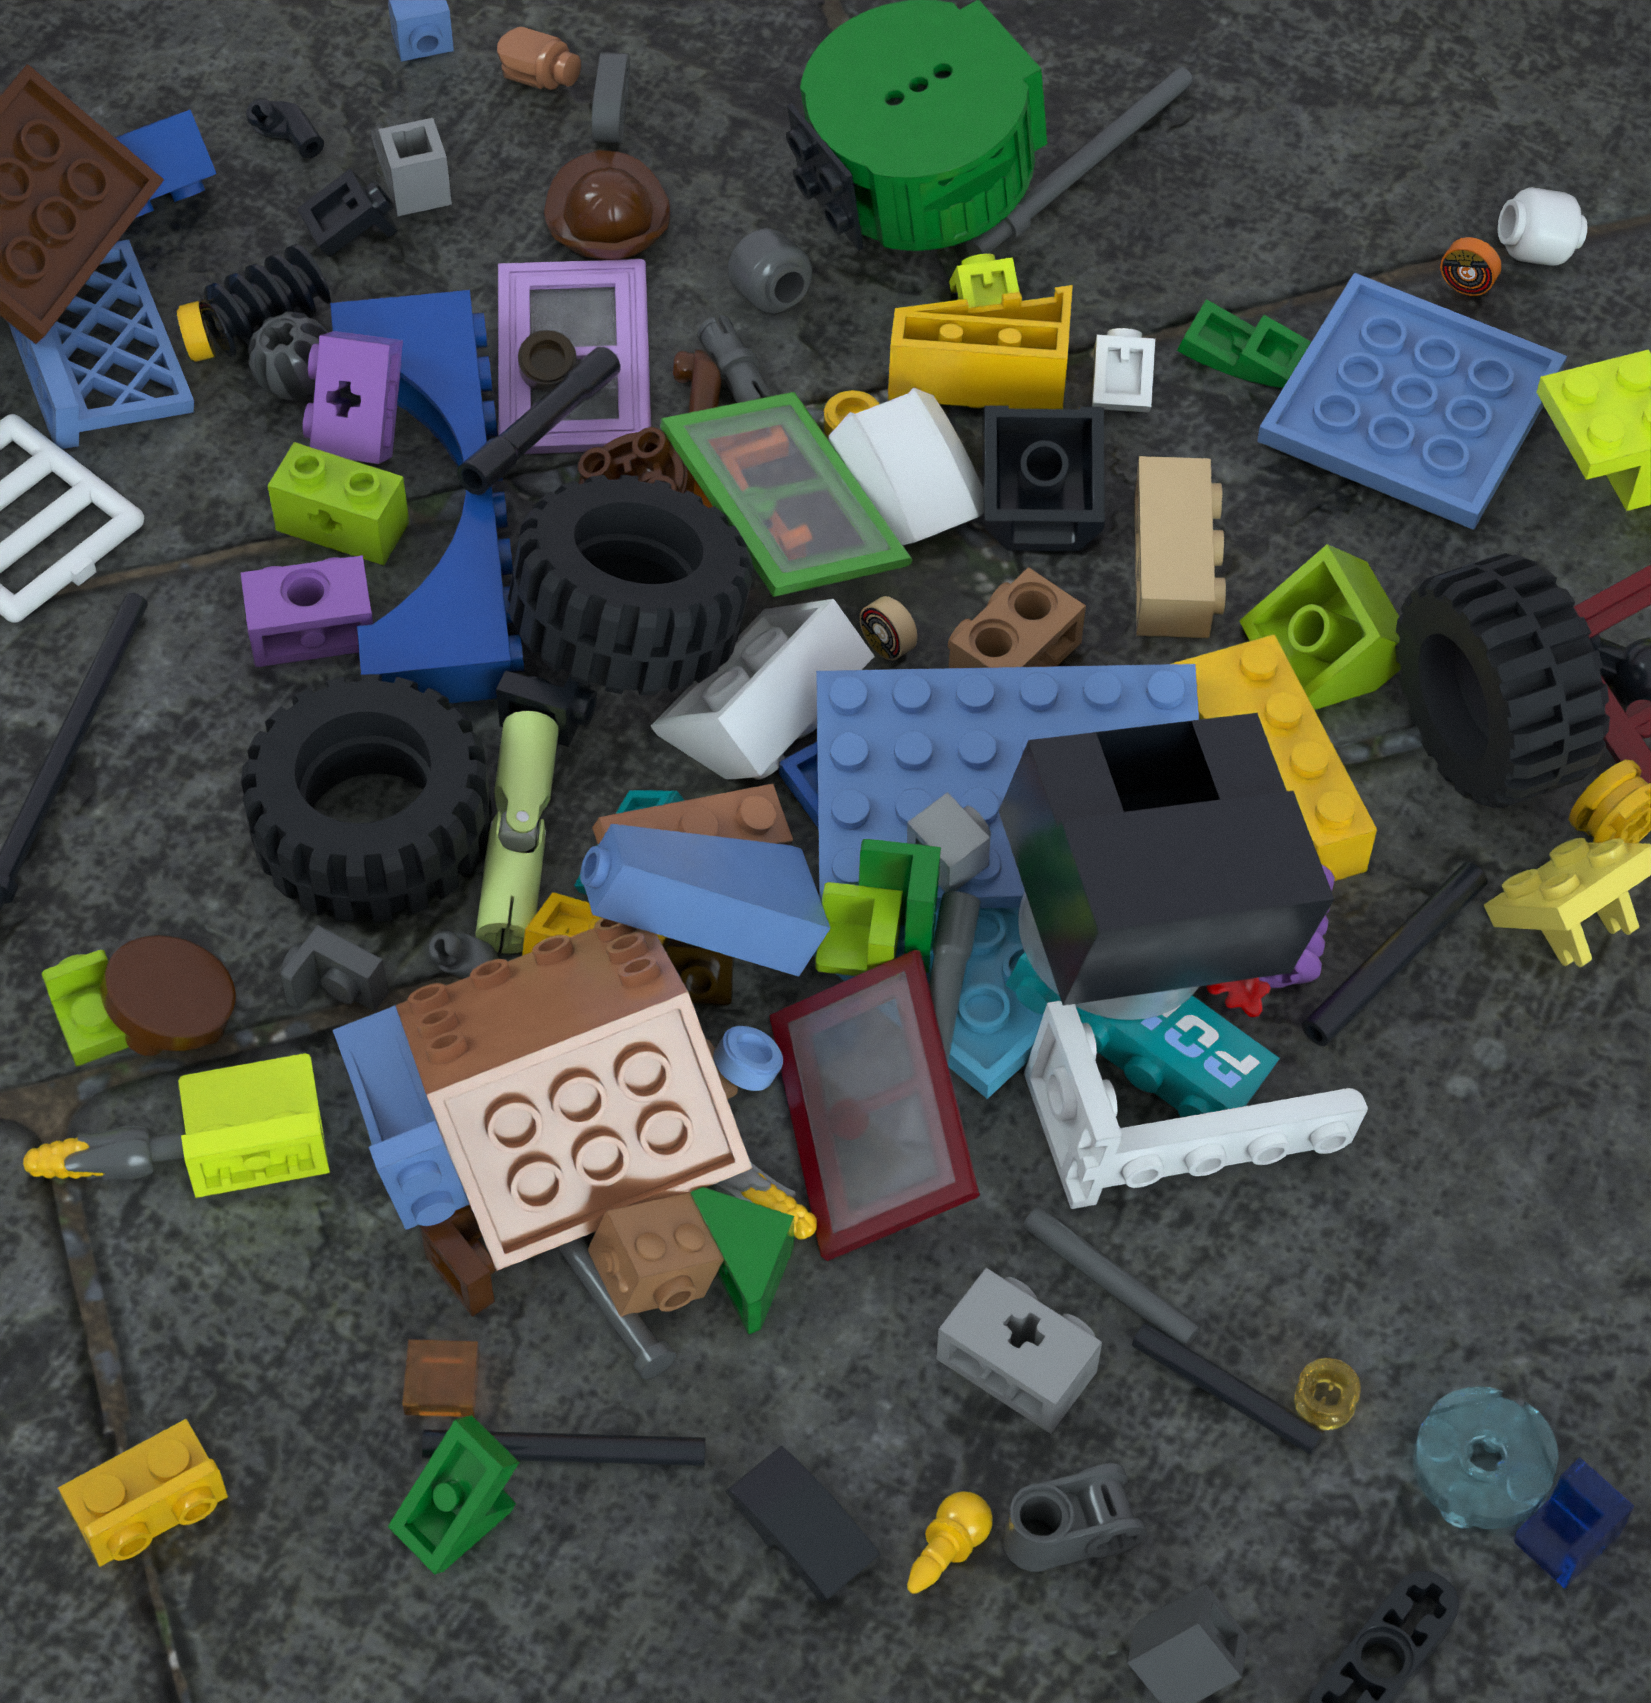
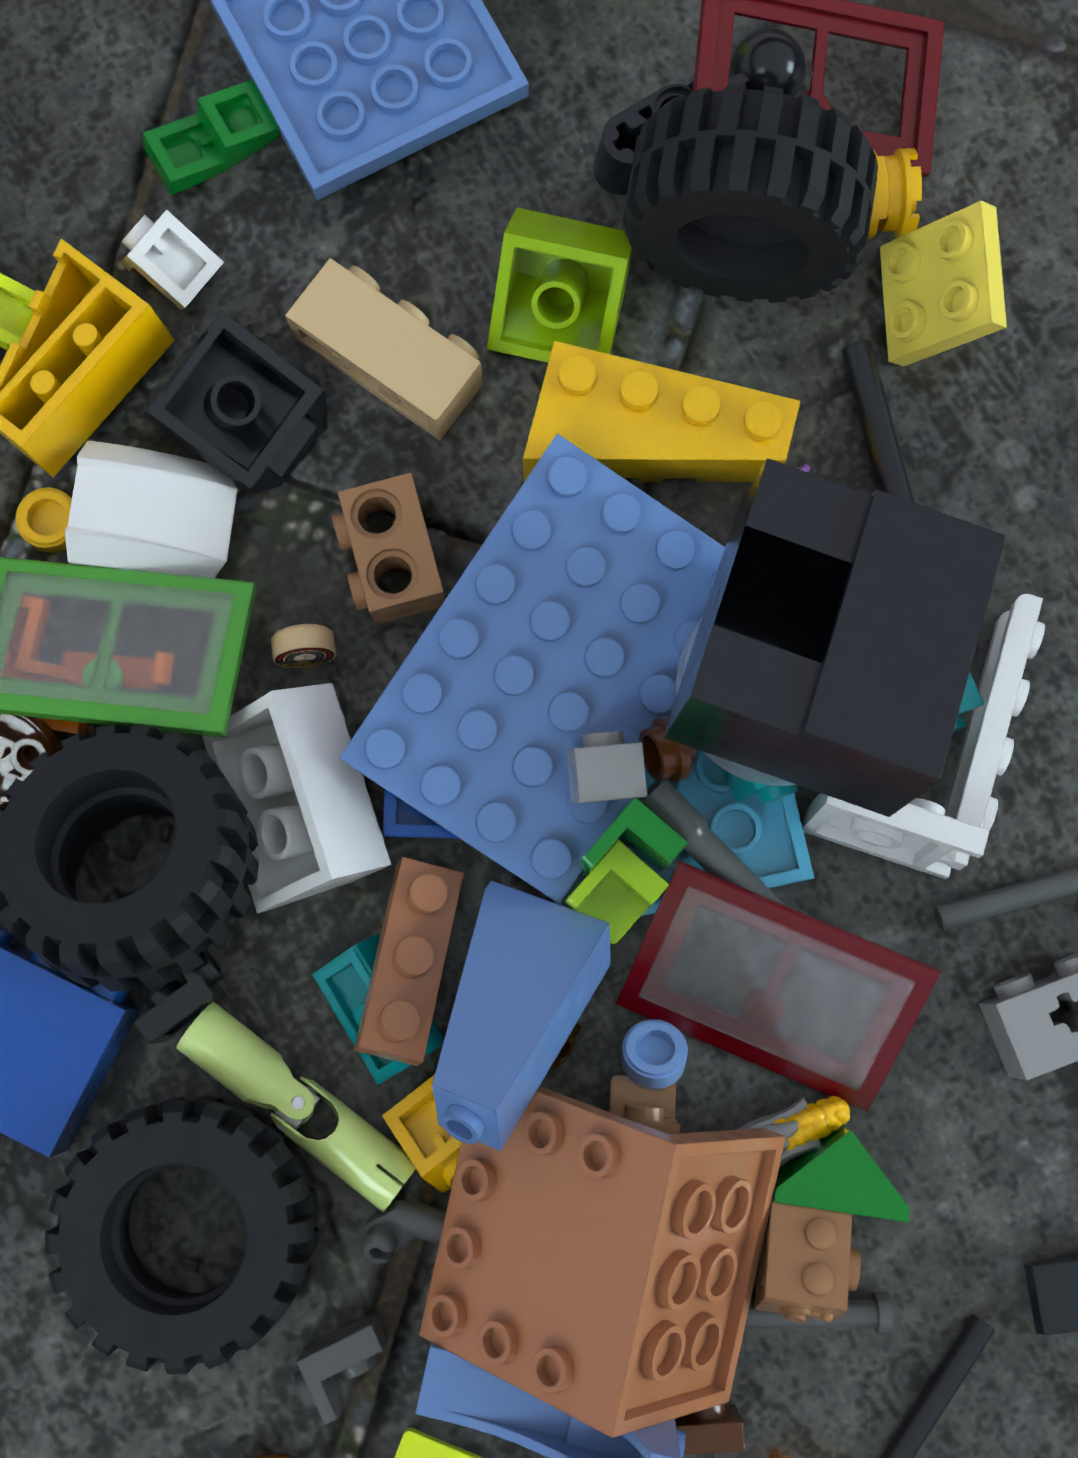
camera: 55 degrees left, 25 degrees up
(1000, 883) = (664, 756): none -> reddish brown plate

